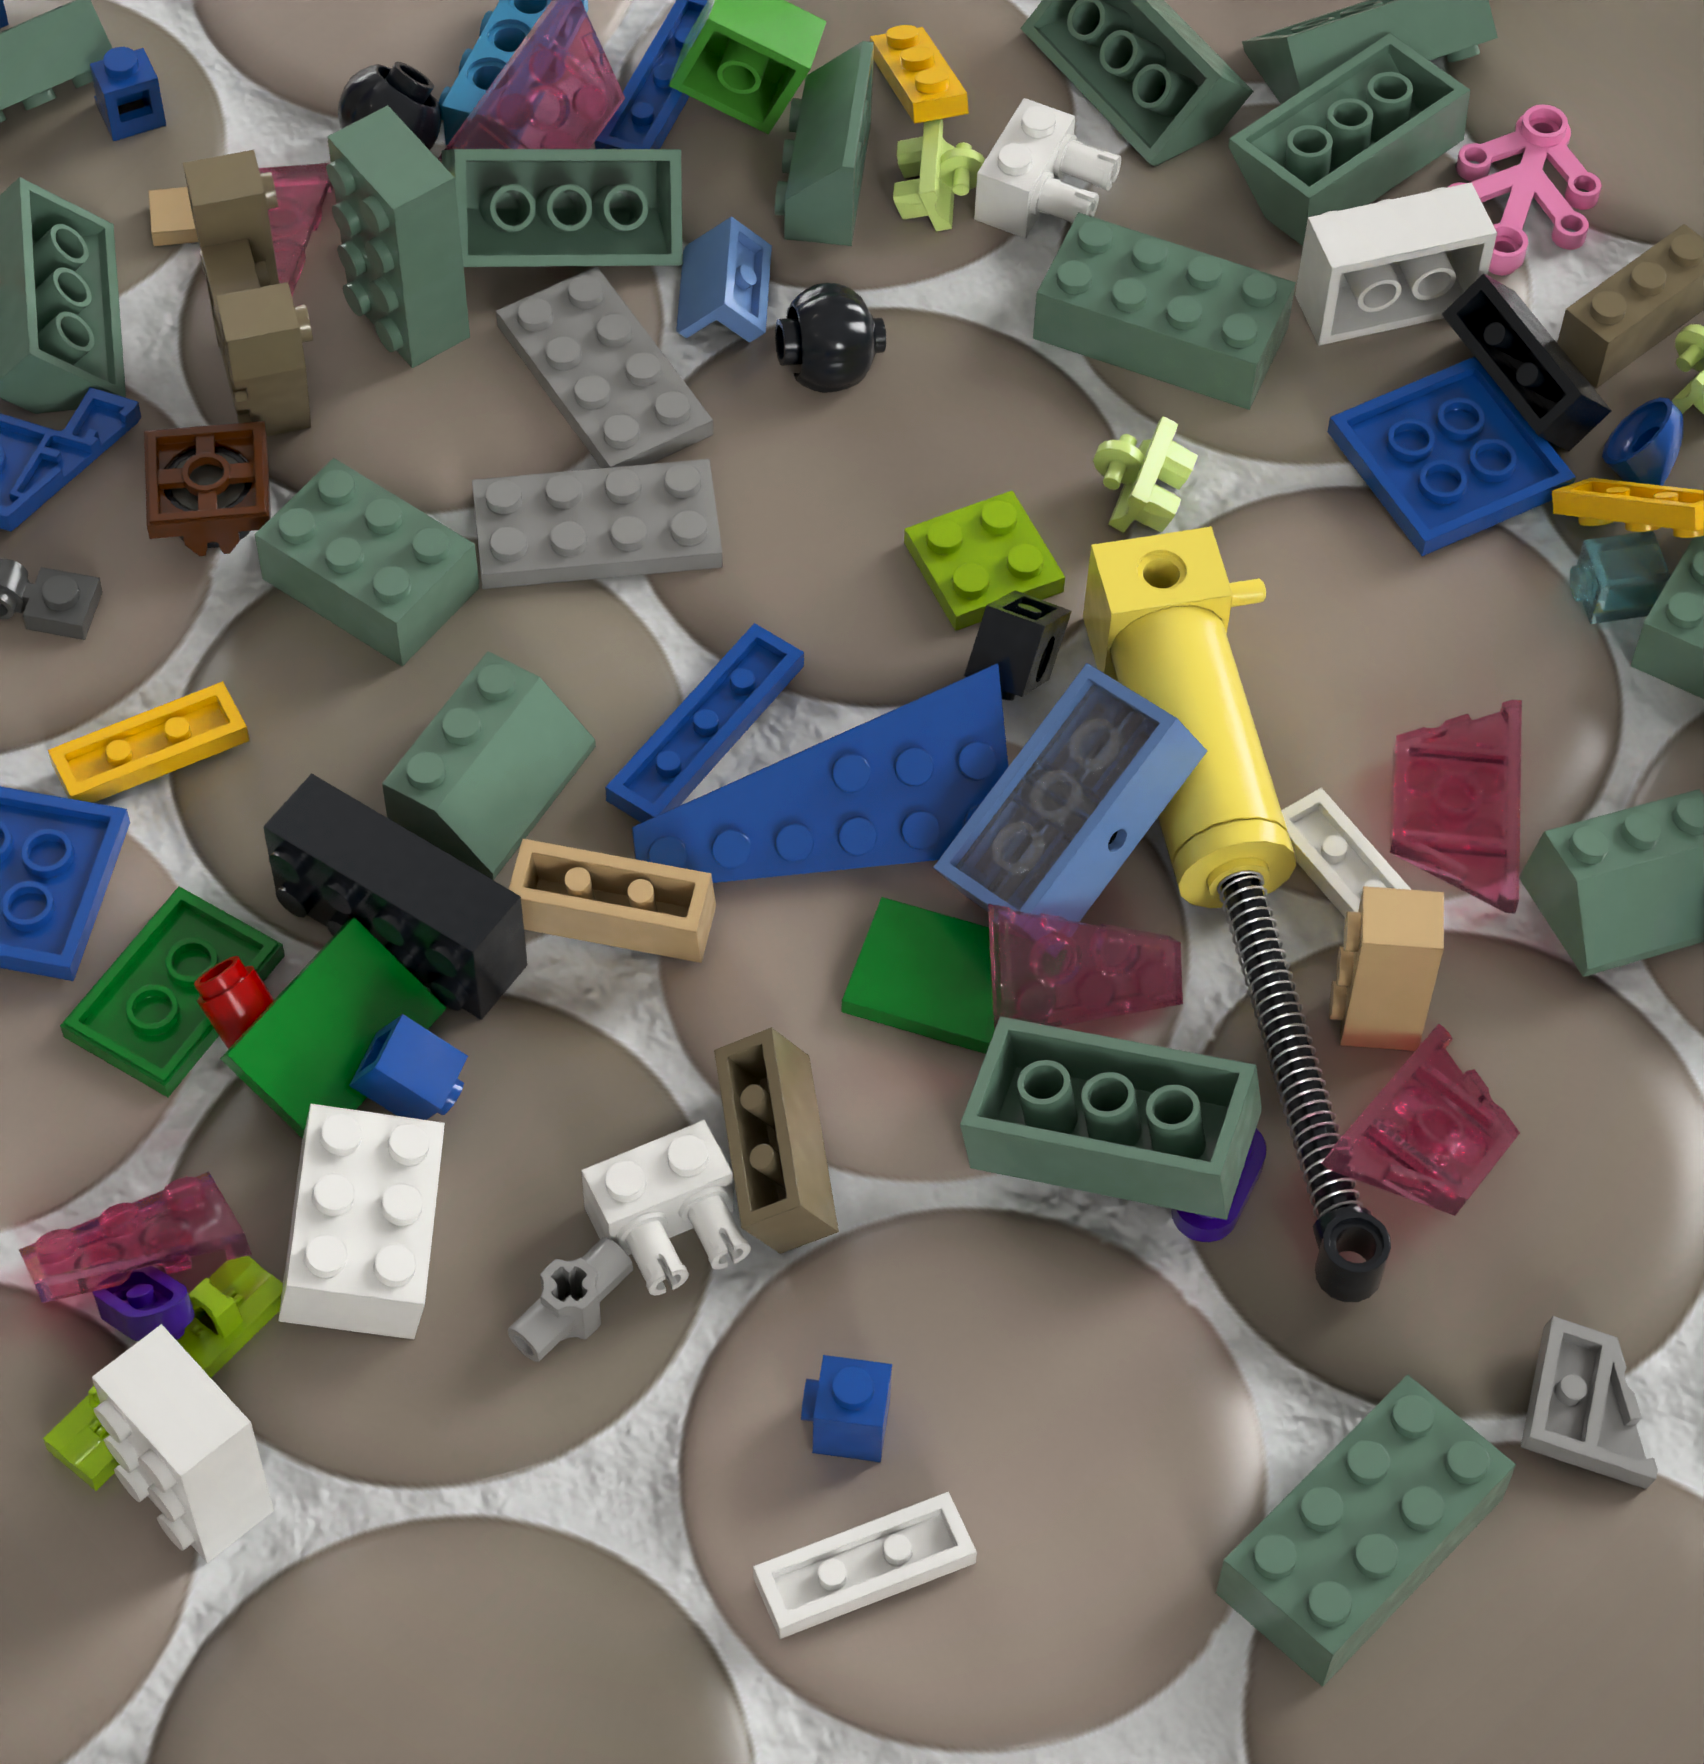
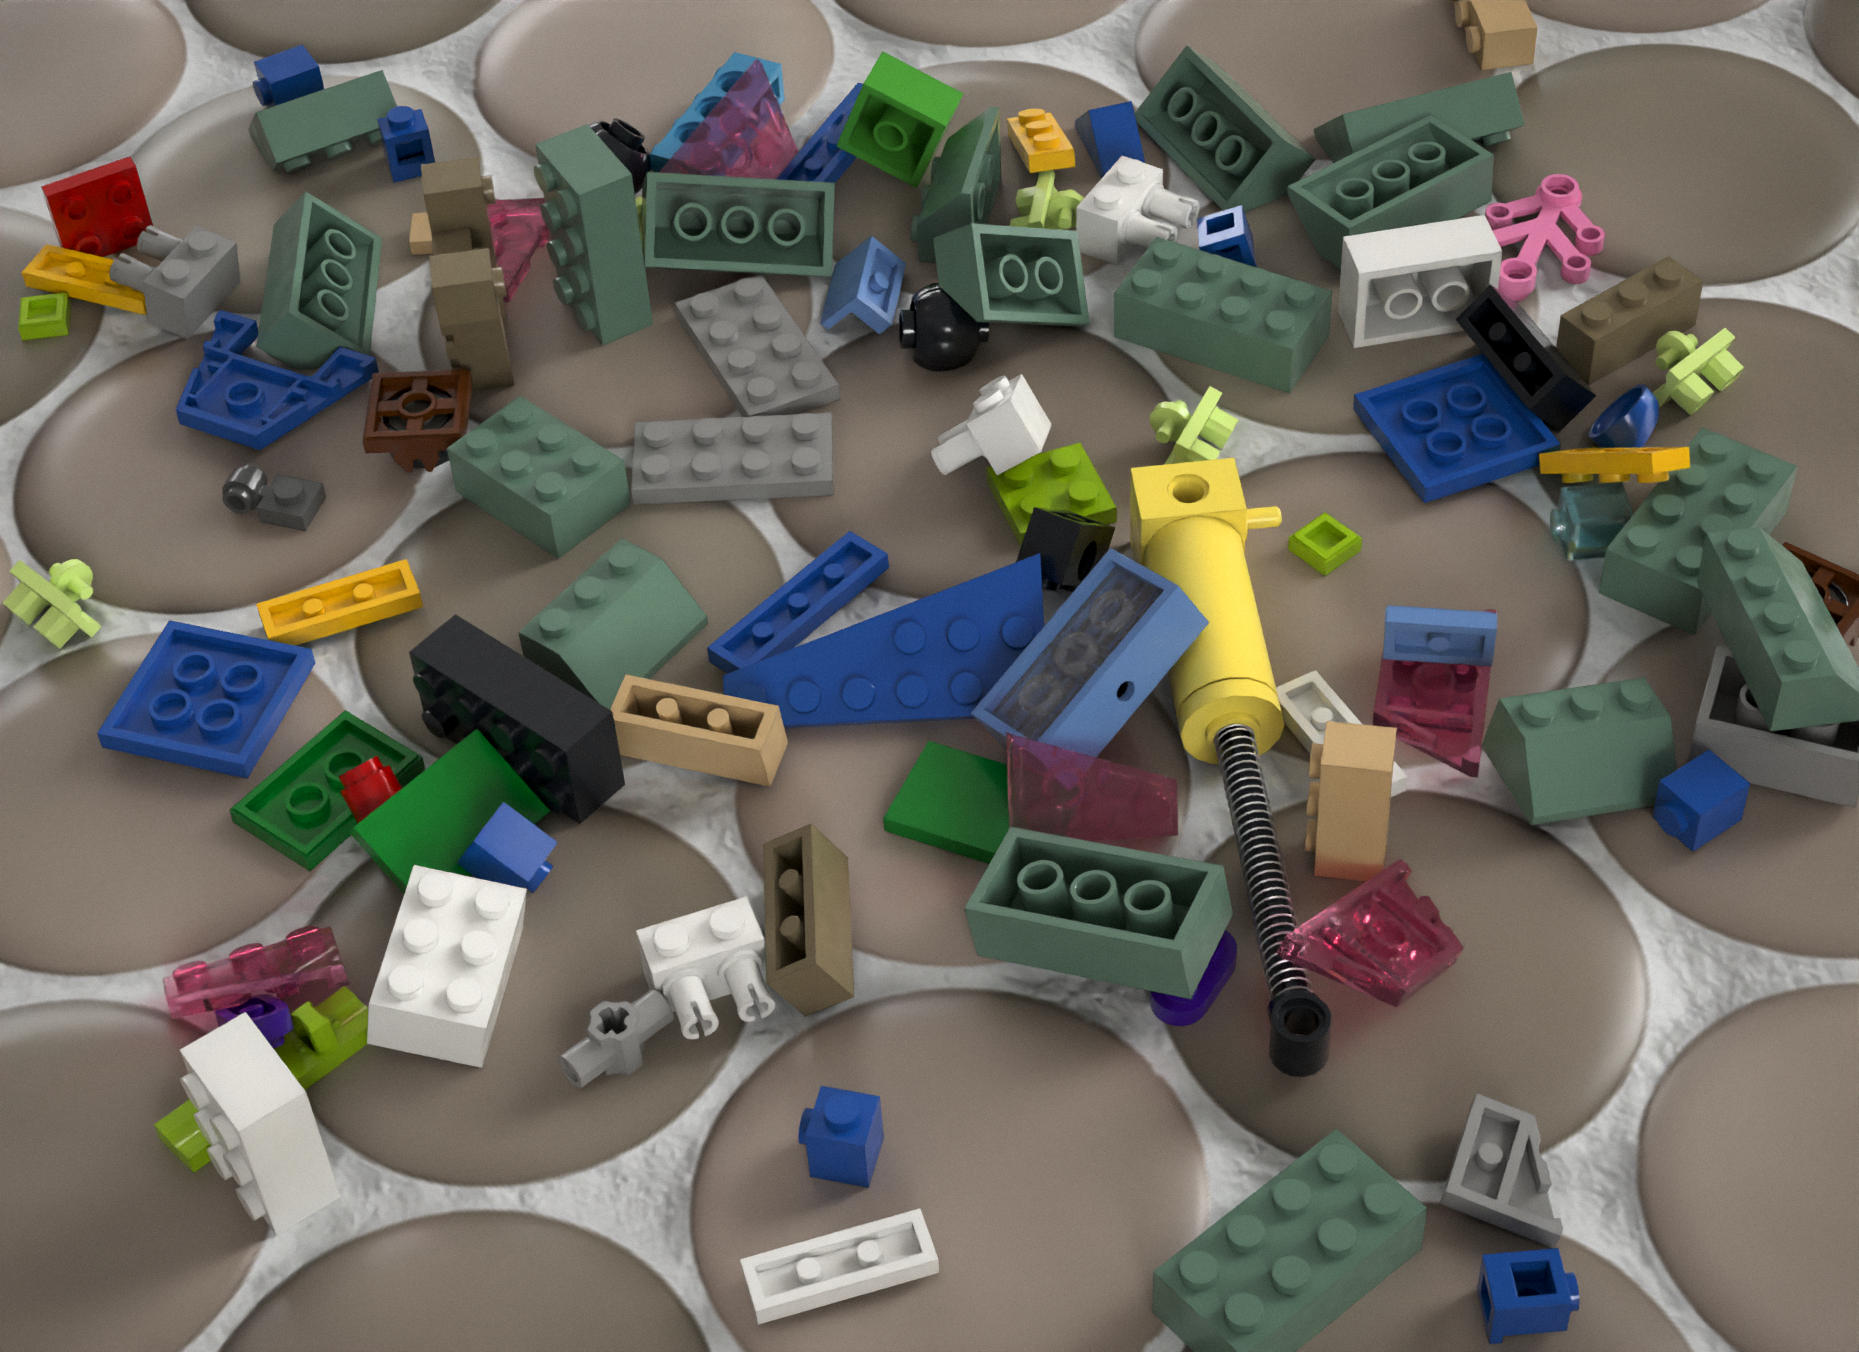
camera: 10 degrees right, 10 degrees down
(913, 273) = (1014, 274): none -> sand green slope
(923, 483) = (1003, 428): none -> white brick
(1001, 64) = (1109, 135): none -> blue slope
(1159, 205) = (1227, 235): none -> blue brick
(1312, 614) = (1325, 543): none -> lime tile
(1461, 737) = (1439, 635): none -> medium blue panel
(1629, 1530) = (1525, 1293): none -> blue brick

